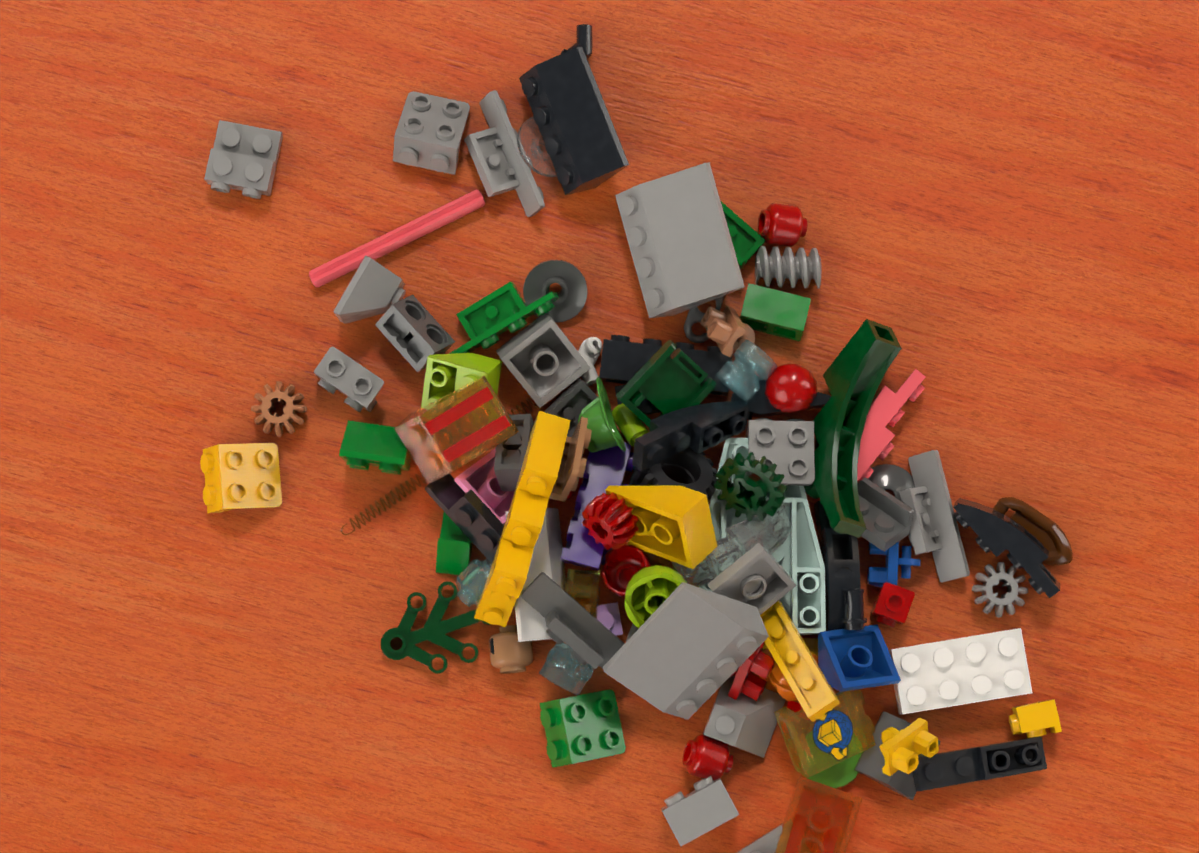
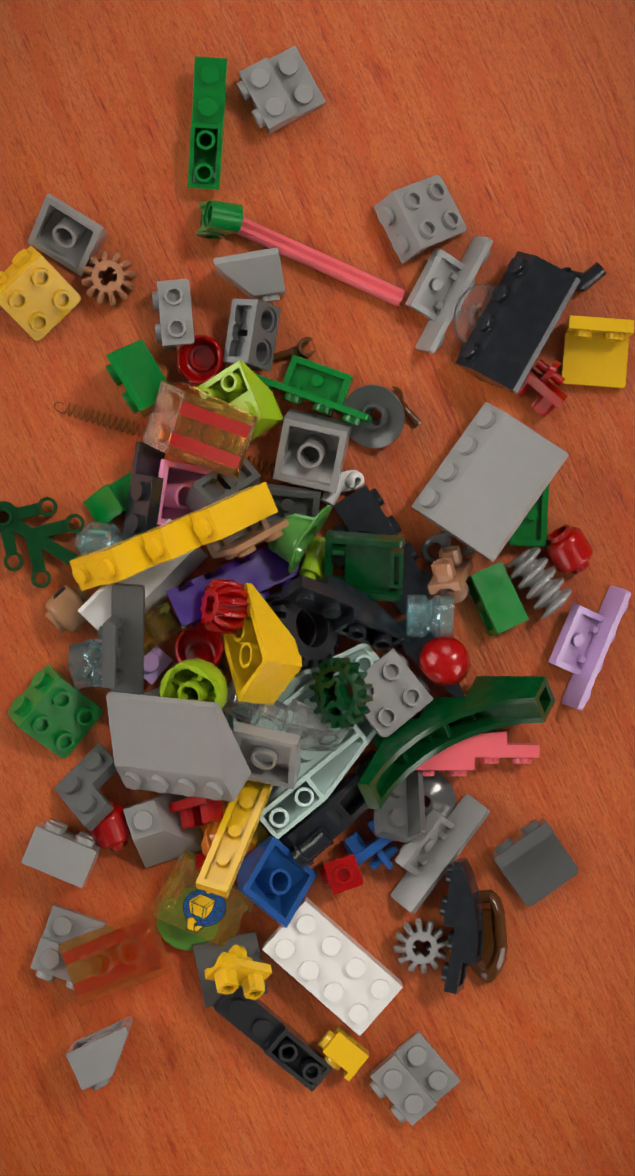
camera: 45 degrees right, 5 degrees up
(218, 414) = (66, 234): none -> light grey slope
(223, 235) = (207, 123): none -> green slope
(305, 285) = (219, 219): none -> green piece
(401, 388) = (201, 359): none -> red hair
(455, 309) = (296, 350): none -> reddish brown hand
(576, 262) = (408, 412): none -> reddish brown hand
(645, 81) = (596, 351): none -> yellow bracket
(650, 143) = (550, 394): none -> red hips
(658, 753) = (82, 785): none -> dark grey plate
(865, 270) = (585, 644): none -> lavender bracket
(1004, 447) = (534, 861): none -> dark grey bracket
(1100, 681) = (413, 1078): none -> light grey plate

